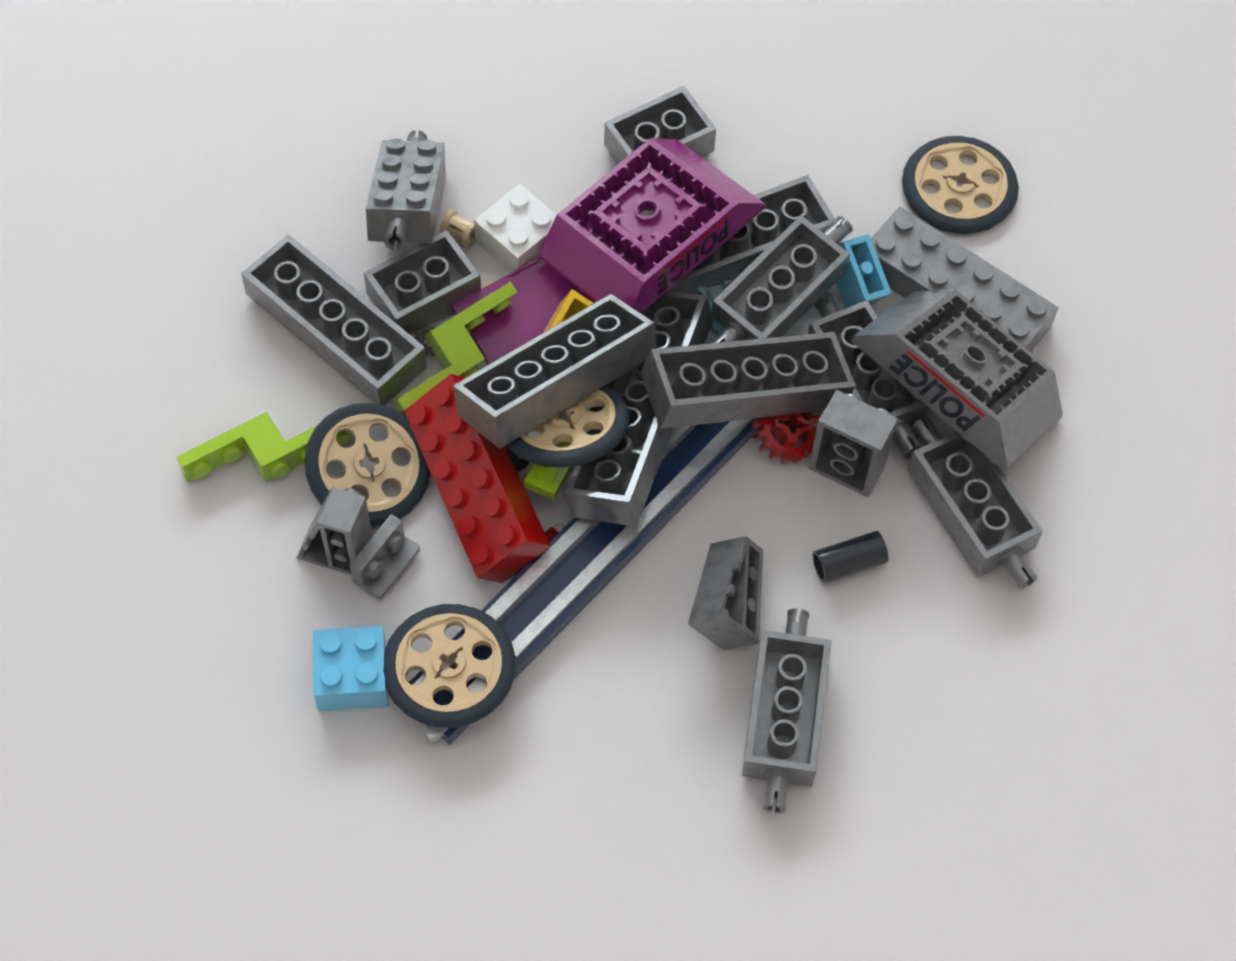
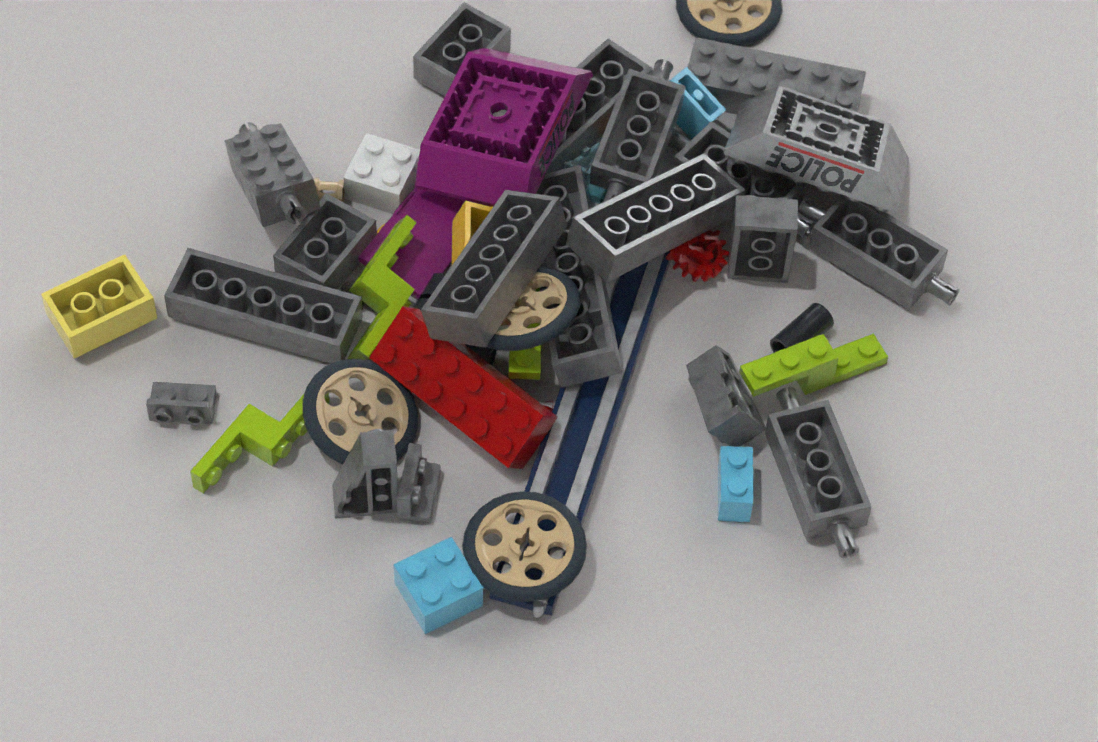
camera: 25 degrees left, 5 degrees down
(182, 259) = (99, 306): none -> light yellow brick
(213, 385) = (181, 403): none -> flat silver bracket
(696, 687) = (735, 483): none -> medium azure brick
(841, 595) = (813, 364): none -> lime bracket

